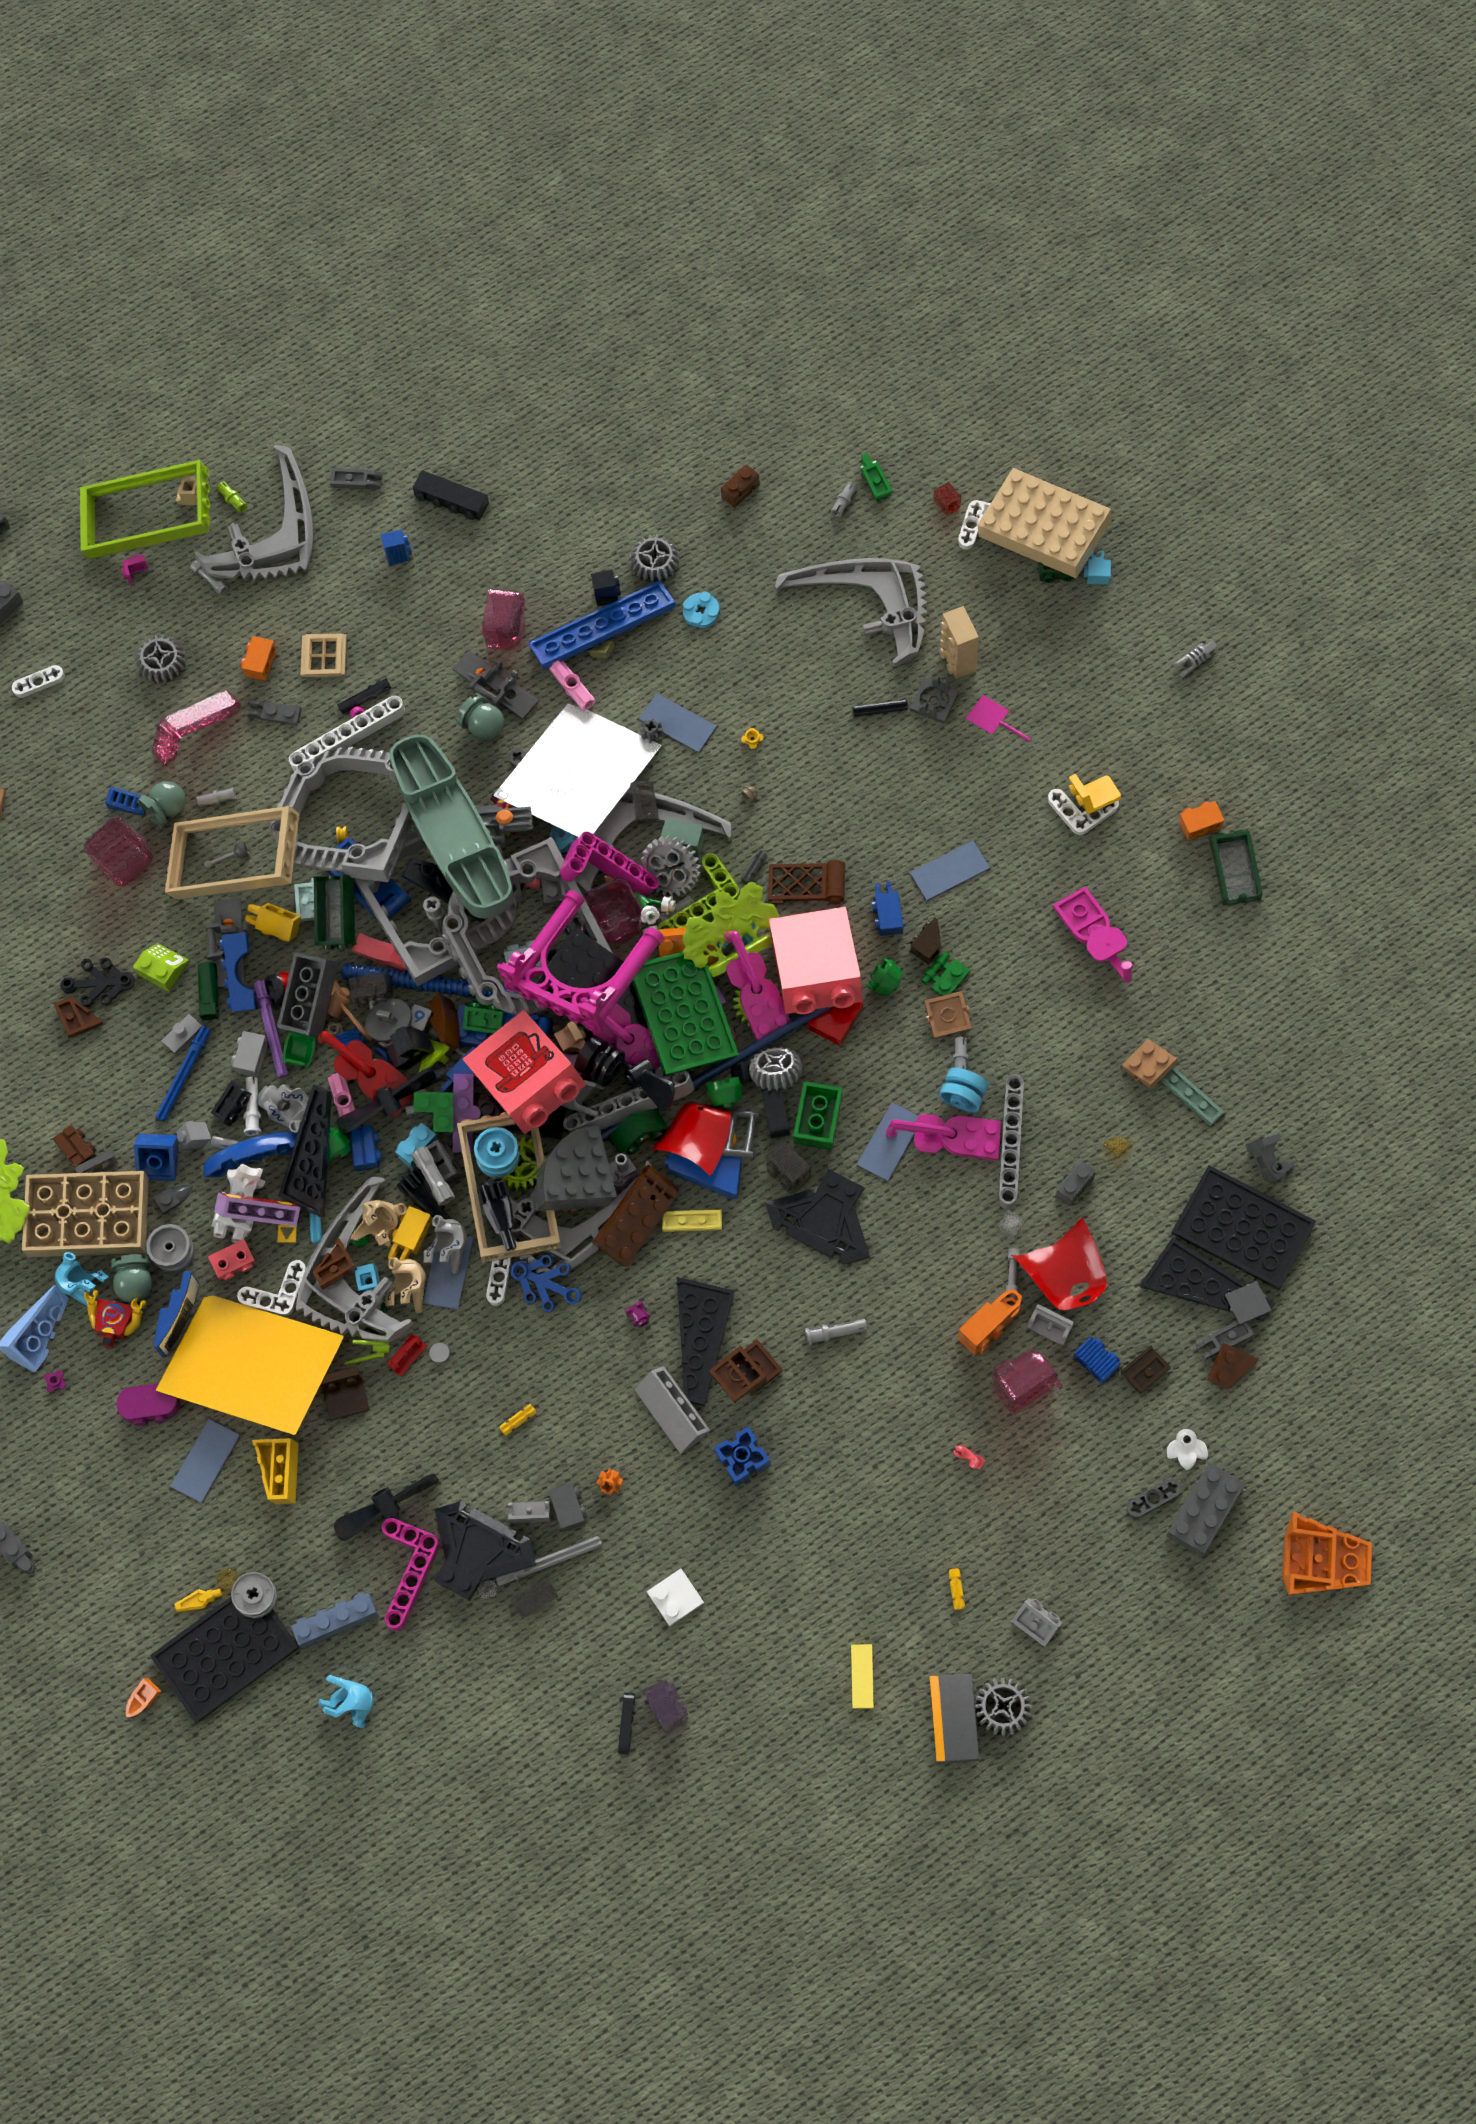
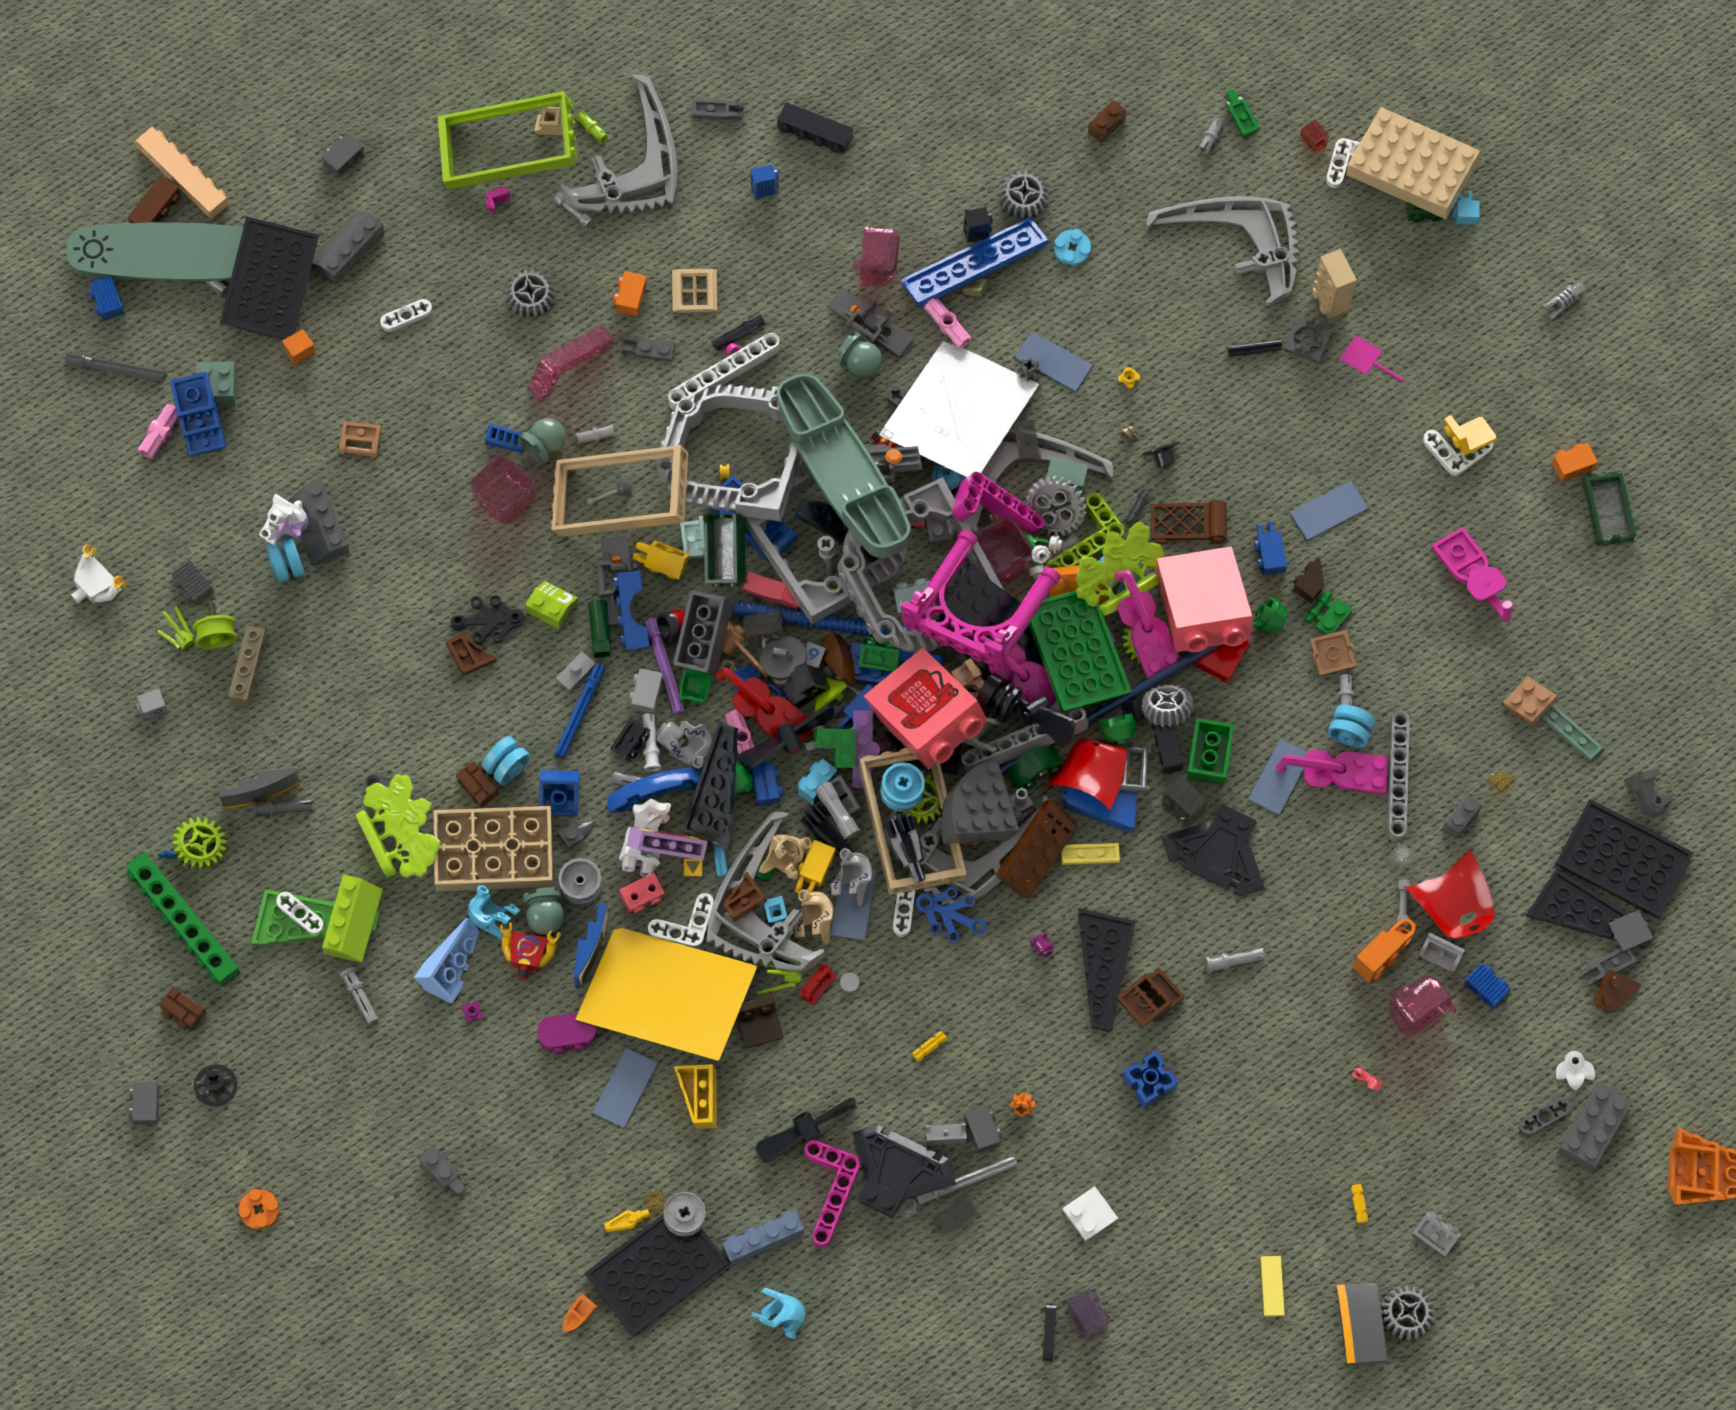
camera: 10 degrees left, 0 degrees up
(103, 1124) = (506, 760): none -> medium azure wheel
(104, 1161) = (506, 797): dark grey plate -> none
(193, 1135) = (595, 771): light grey brick -> none
(672, 1409) = (1079, 1035): light grey brick -> none
(783, 816) = (1163, 454): none -> black wheel
(1145, 1370) = (1533, 995): dark brown plate -> none

